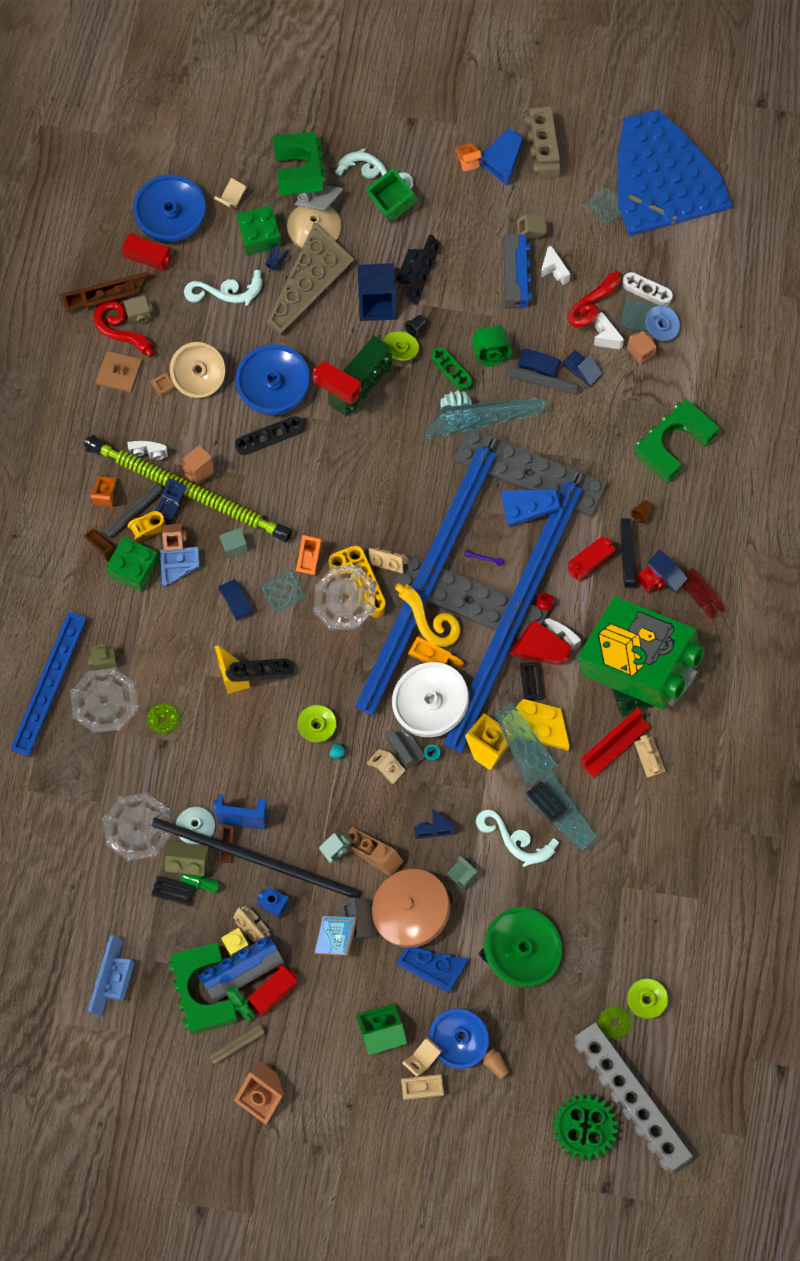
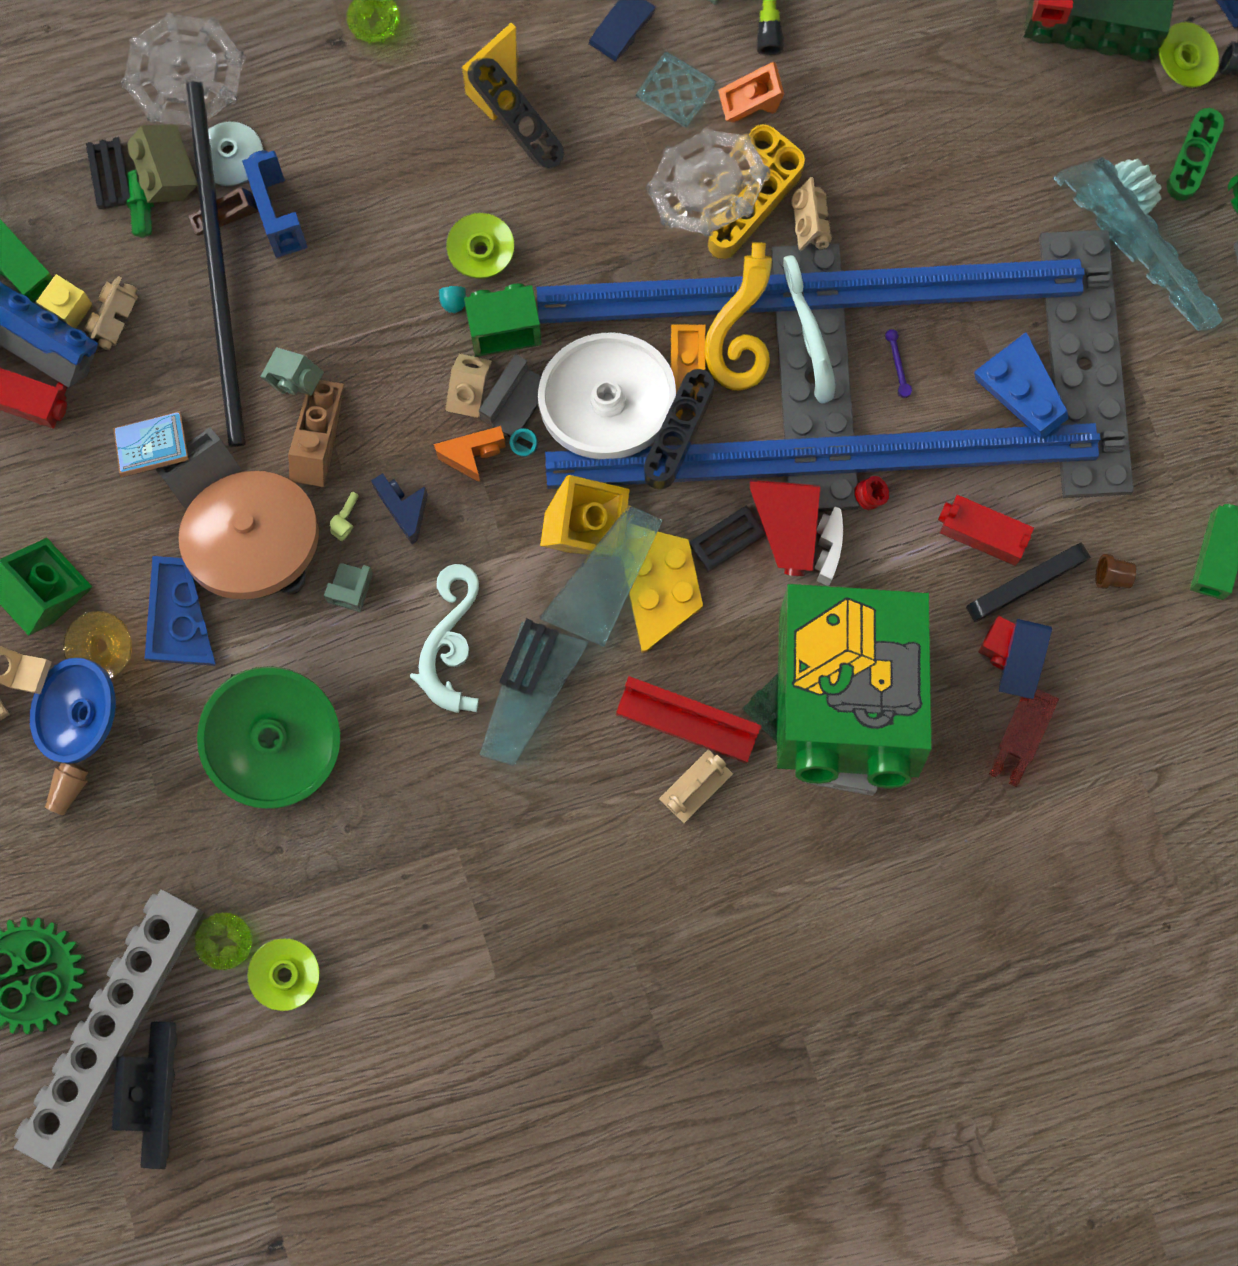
camera: 60 degrees right, 10 degrees up
(275, 908) = (163, 335): blue brick -> none
(364, 729) = (503, 319): none -> green piece
(422, 784) = (460, 451): none -> orange slope
(426, 1001) = (88, 630): none -> clear yellow dish
(428, 863) = (339, 525): none -> yellowish green hand
(454, 585) = (812, 335): none -> light aqua plant
(470, 670) = (681, 429): none -> black beam
(675, 1093) = (145, 1092): none -> black bracket

